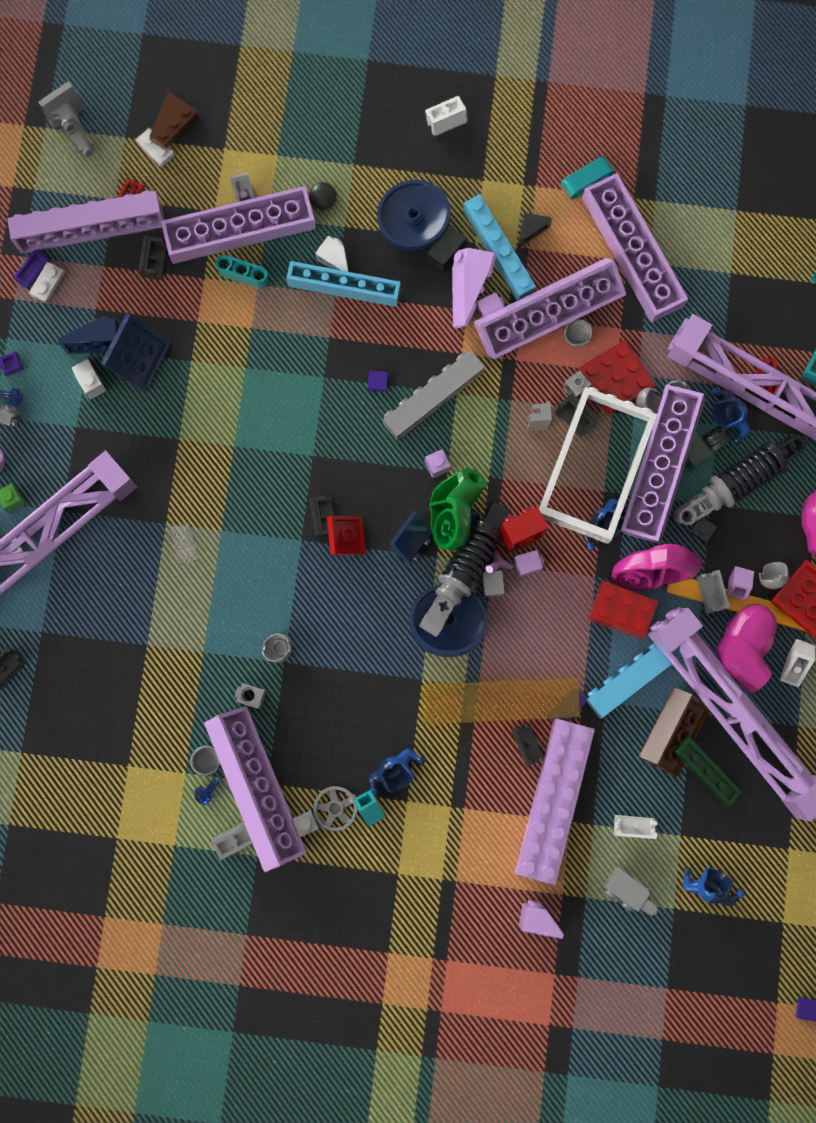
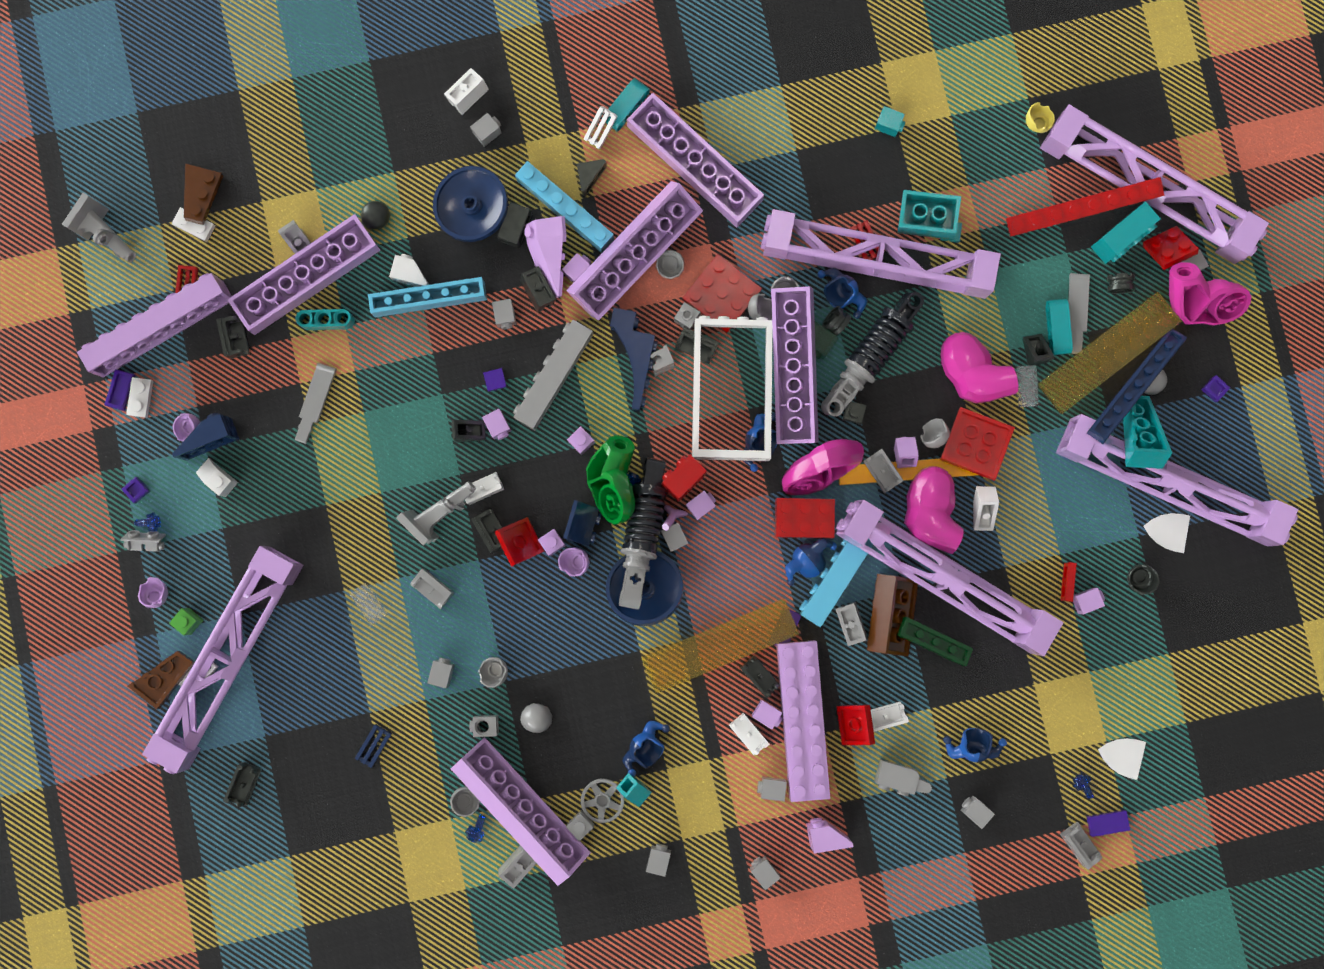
camera: 15 degrees left, 5 degrees up
(77, 319) = (184, 425): none -> lavender hair
(126, 687) = (364, 760): none -> dark blue tile
(135, 353) = (252, 438): dark blue plate -> none
(205, 341) = (315, 400): none -> light grey piece
(228, 631) = (441, 672): none -> light grey brick
(248, 550) = (432, 588): none -> light grey hinge
(264, 486) = (422, 525): none -> light grey piece
(301, 707) = (536, 718): none -> light grey hair
(329, 476) = (485, 487): none -> white hinge
(335, 417) = (468, 430): none -> pearl dark grey slope
(364, 421) = (497, 424): none -> lavender brick
(368, 884) = (658, 860): none -> light grey brick
(376, 547) = (551, 542): none -> lavender brick
(390, 572) = (573, 561): none -> lavender hair
(408, 324) = (504, 314): none -> light grey brick
(447, 312) = (537, 289): none -> pearl dark grey hinge
(452, 155) = (486, 129): none -> light grey brick
(466, 934) = (764, 872): none -> light grey brick
(498, 795) = (749, 734): none -> white hinge
(502, 856) = (772, 788): none -> light grey brick
(521, 399) = (639, 350): none -> dark blue arch
(522, 783) = (767, 714): none -> lavender brick
(546, 198) = (593, 140): none -> white tile
(604, 823) = (855, 725): none -> red plate
(612, 650) = (808, 560): none -> piece
(633, 725) = (851, 624): none -> light grey hinge
(692, 951) = (977, 811): none -> light grey brick
(783, 1023) = (1081, 845): none -> light grey hinge
(804, 960) = (1081, 782): none -> clear blue plate

